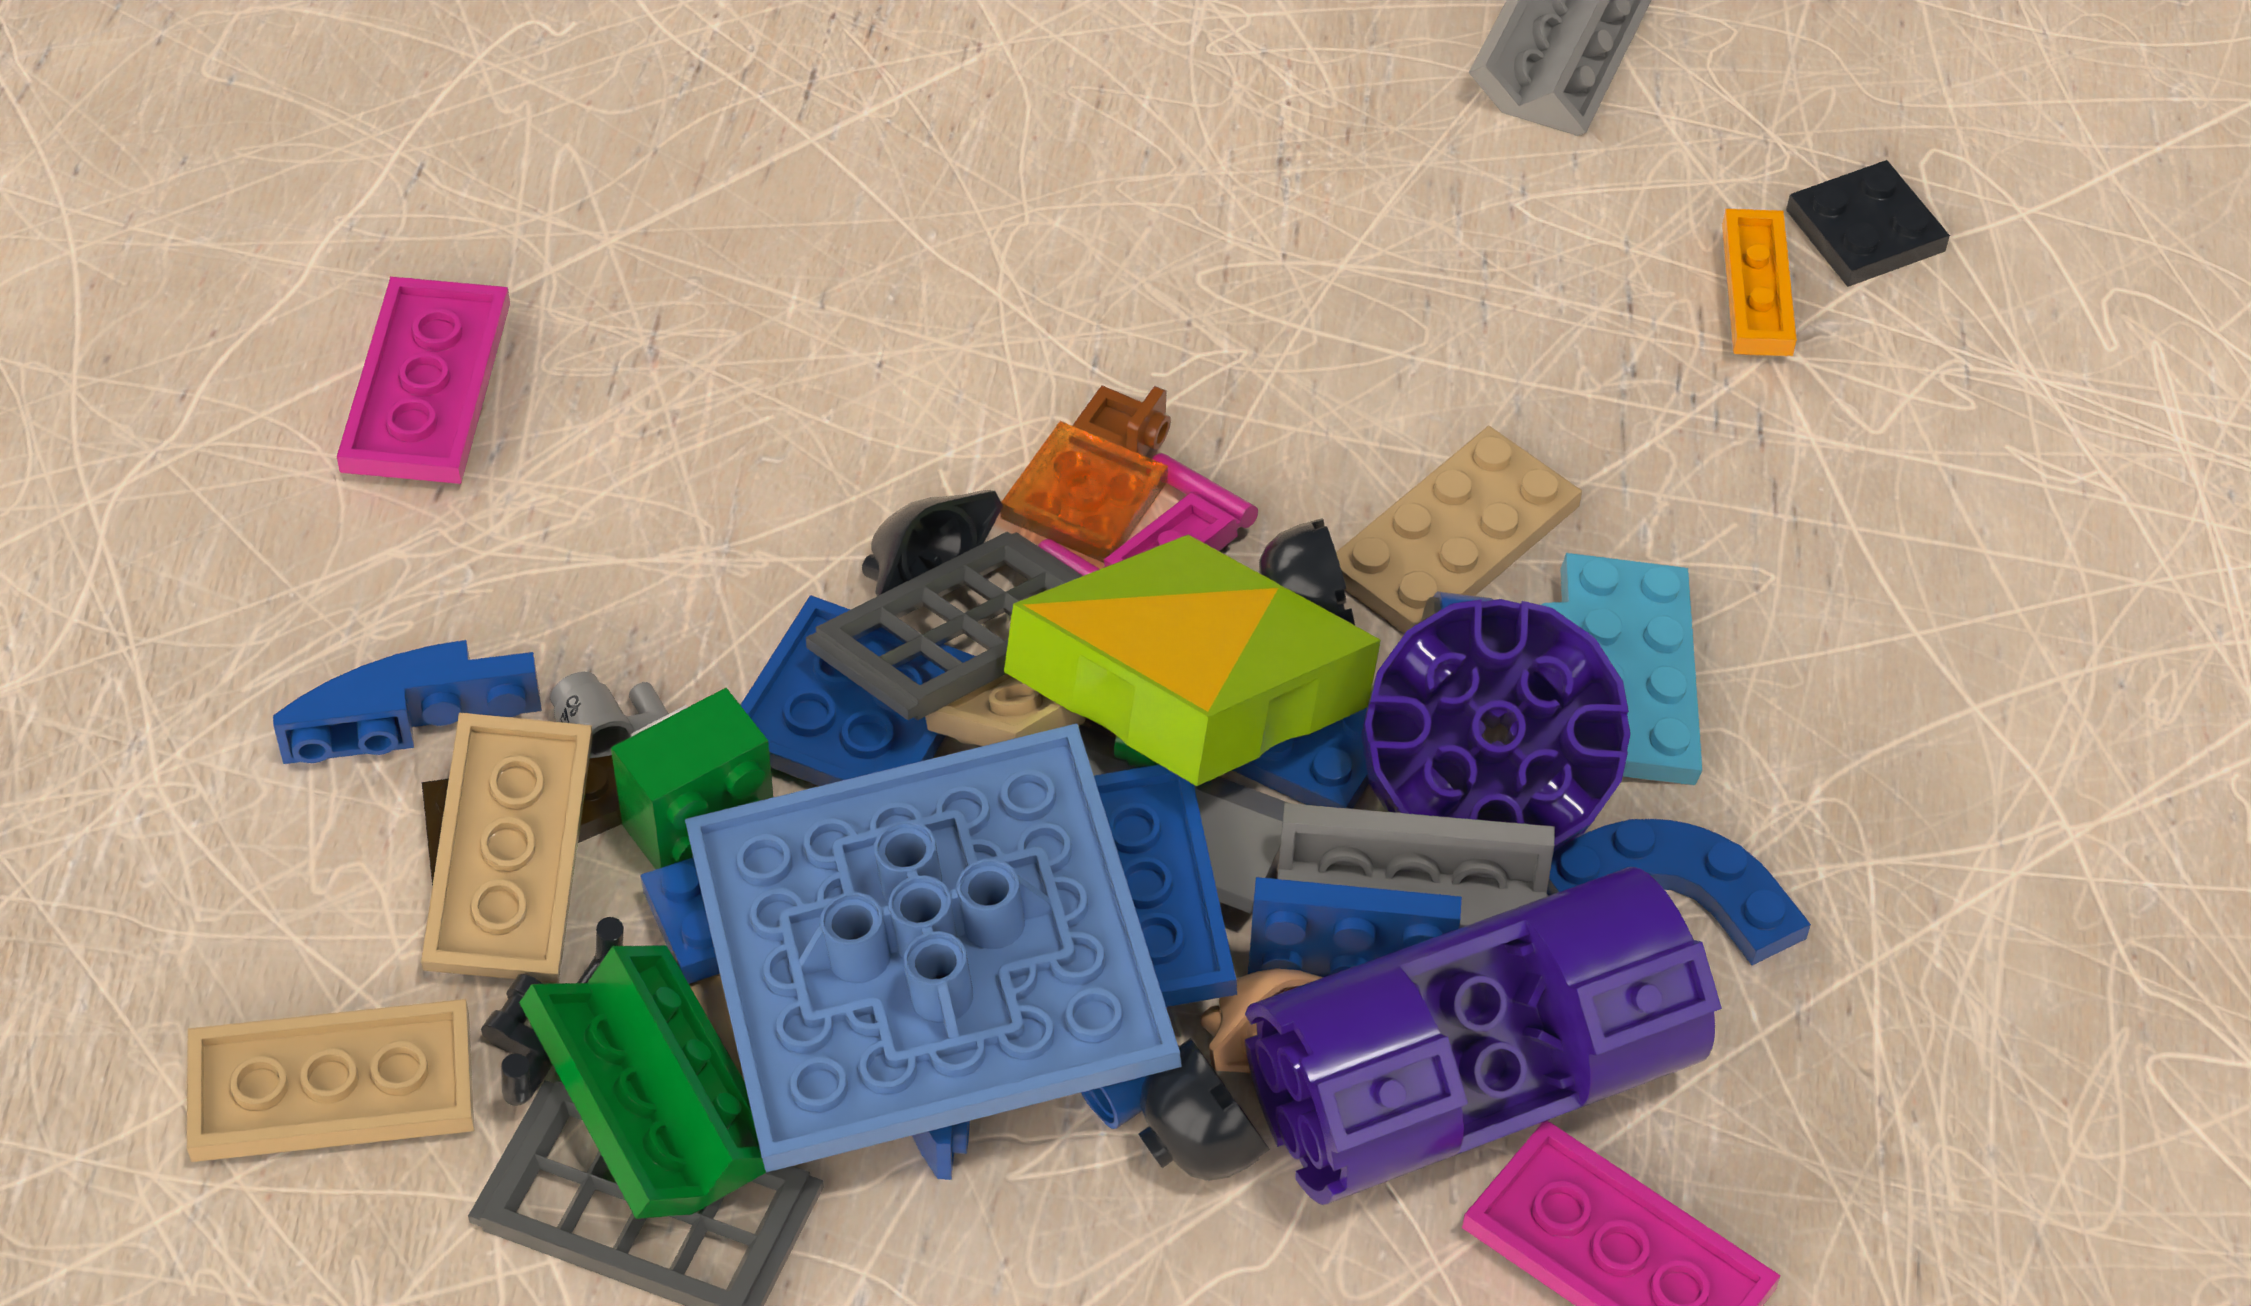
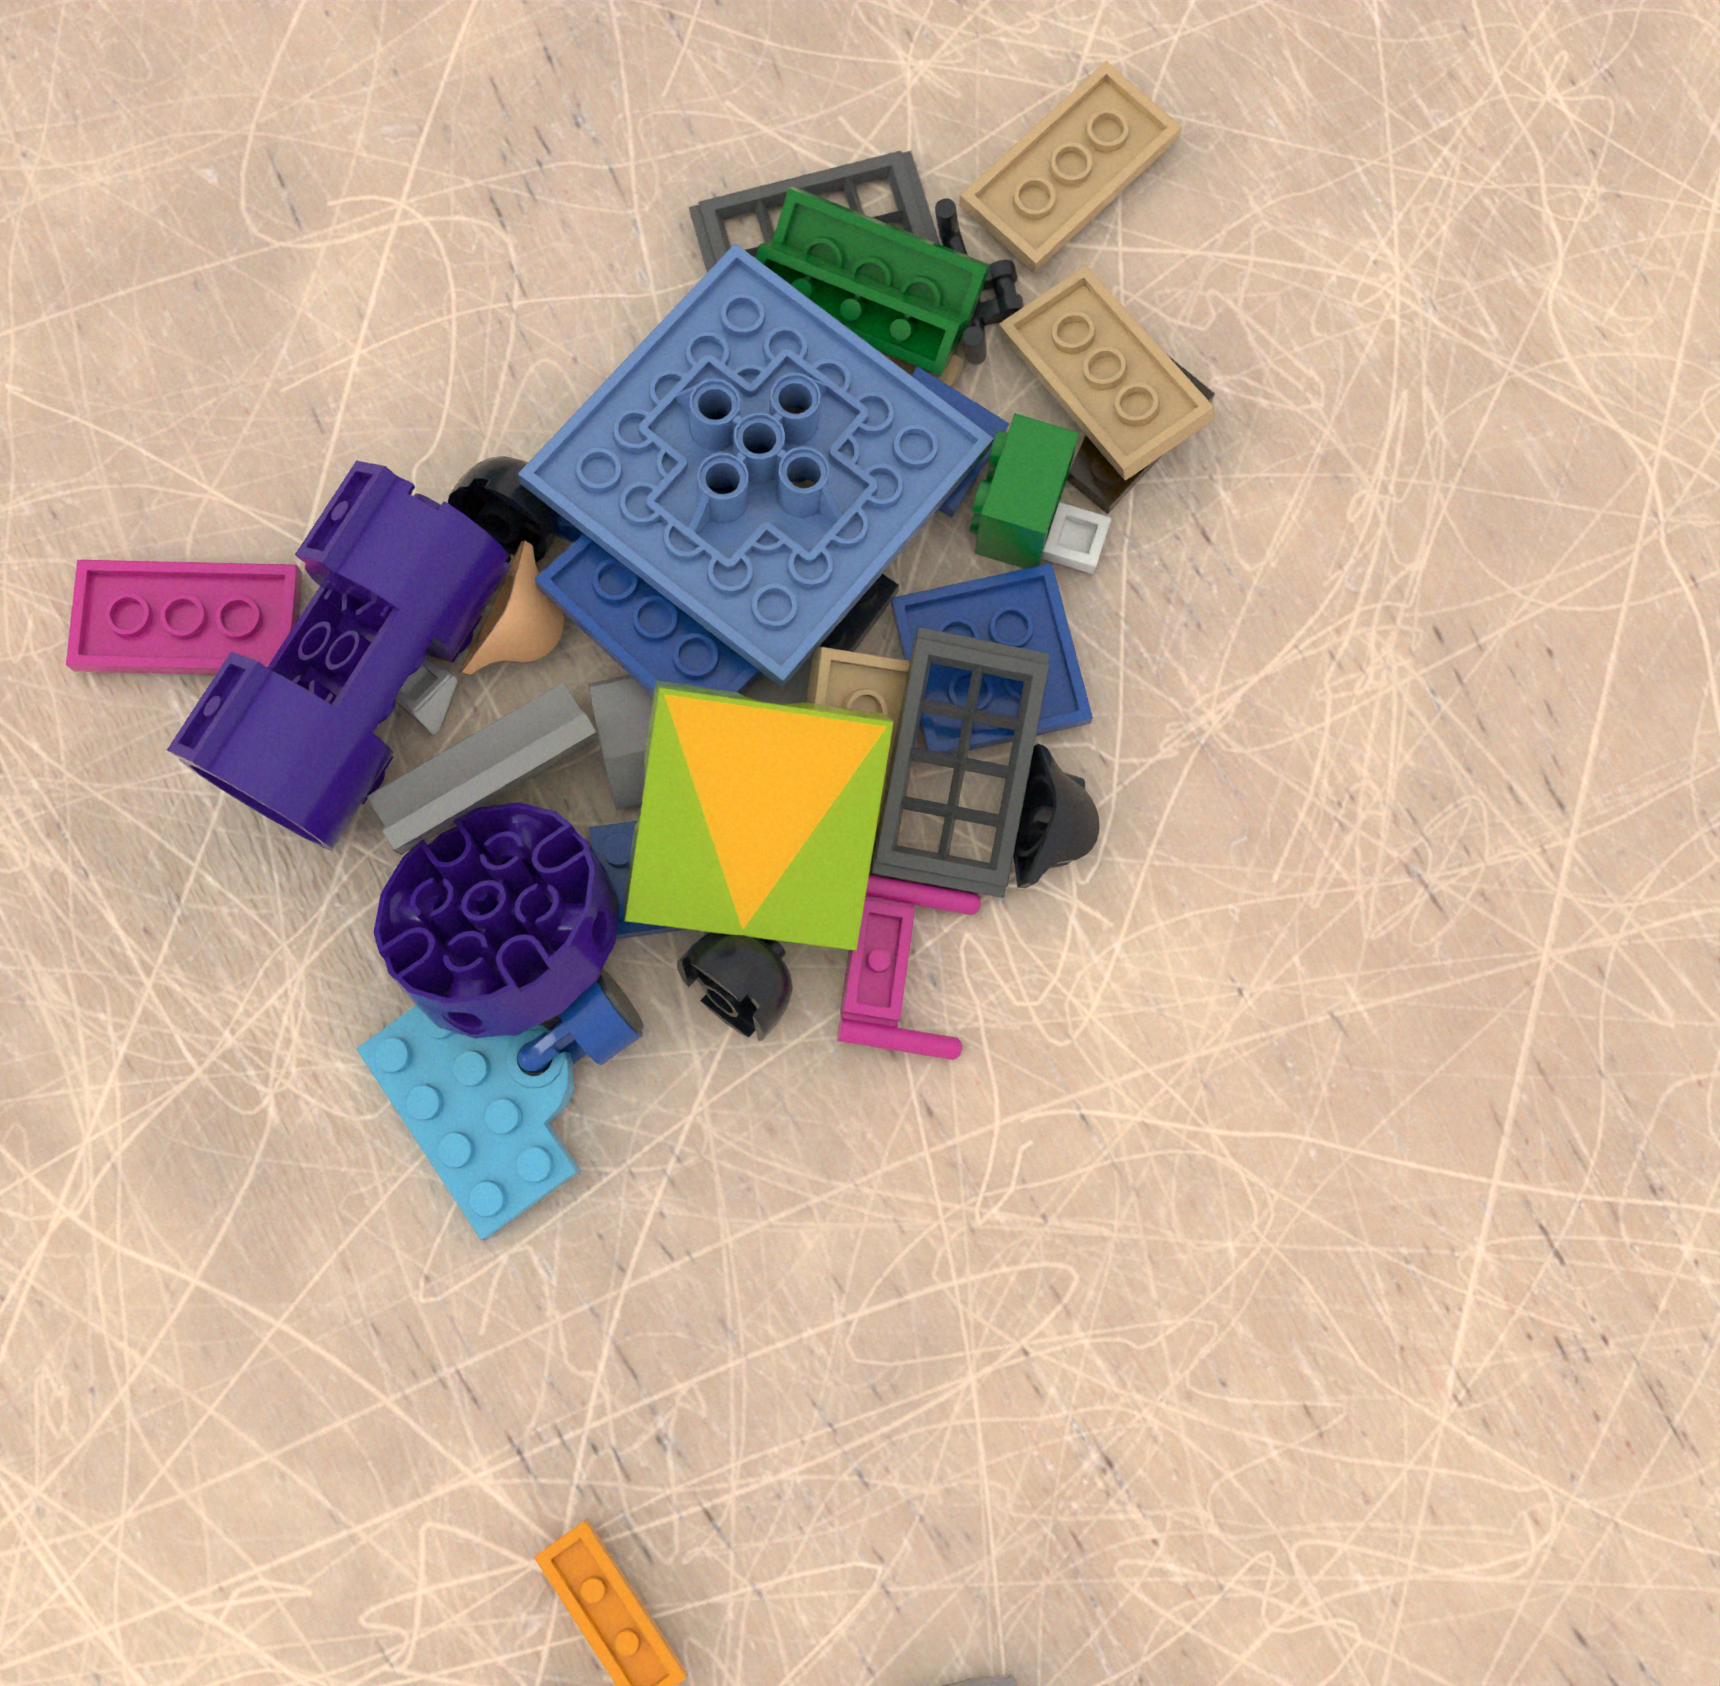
camera: 145 degrees right, 25 degrees up
(382, 701) = (1284, 437): blue slope -> none
(424, 380) = (1539, 706): dark pink plate -> none
(588, 702) = (1149, 517): light grey piece -> none
(1084, 492) = (981, 967): clear orange plate -> none
(1127, 420) = (1002, 1050): dark orange bracket -> none
(1340, 926) = (493, 692): blue plate -> none
(1456, 528) = (685, 1149): tan plate -> none
(1697, 865) = (308, 969): blue plate -> none

